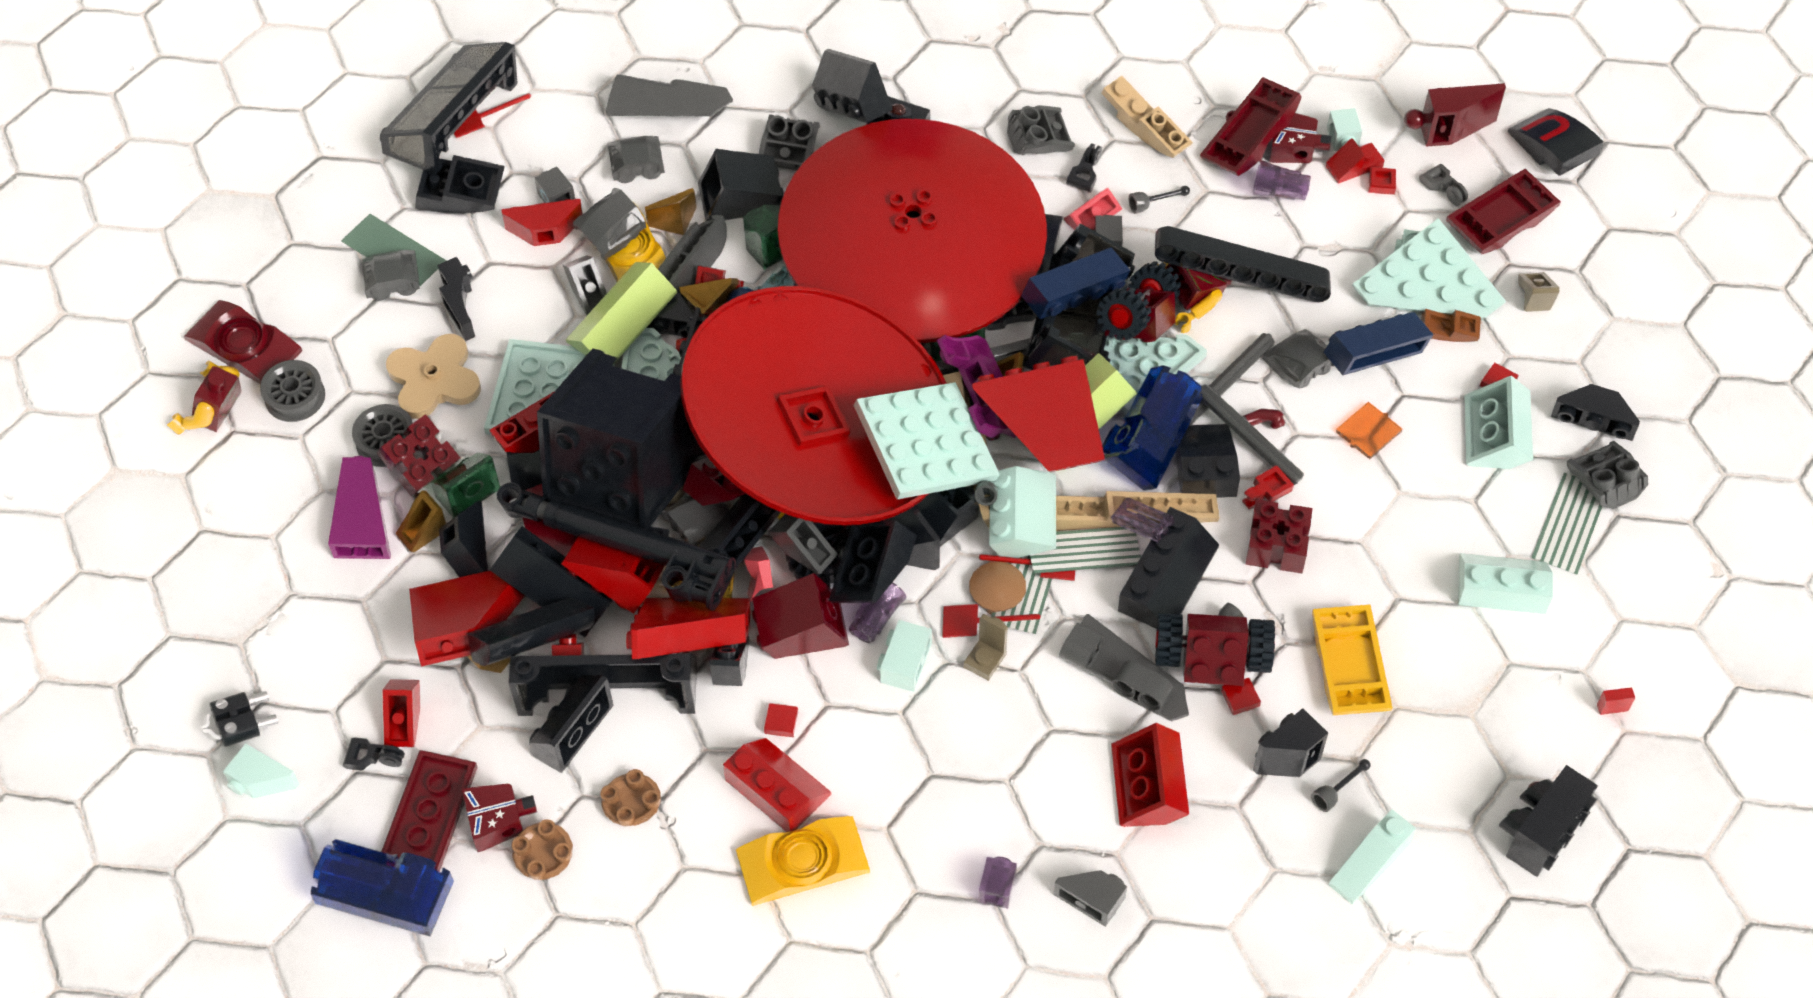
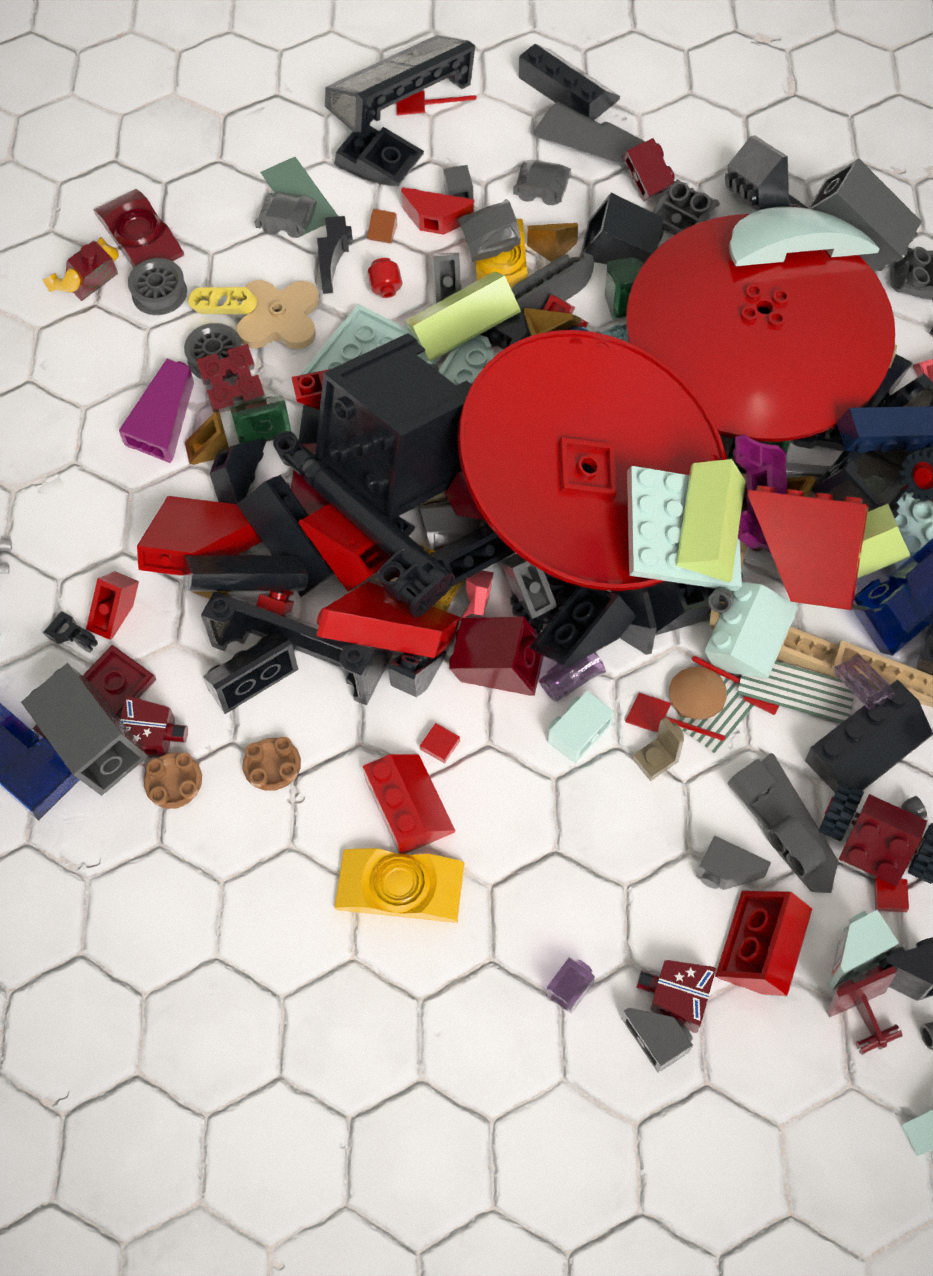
camera: 25 degrees right, 5 degrees up
(381, 385) = (213, 295): none -> light yellow beam
(442, 829) = (84, 729): none -> dark grey brick
(496, 254) = (382, 226): none -> dark orange slope
(523, 304) = (384, 277): none -> red head
(613, 52) = (564, 82): none -> black slope
(738, 113) = (649, 169): none -> dark red brick
(896, 134) = (775, 231): none -> light aqua brick
(948, 422) = (711, 519): none -> yellowish green slope
(964, 93) = (873, 208): none -> dark grey brick
(1093, 724) = (730, 866): none -> dark grey slope
(1095, 847) = (679, 991): none -> dark red torso
(1235, 747) = (861, 947): none -> light aqua slope
(1248, 789) = (857, 994): none -> dark red plate

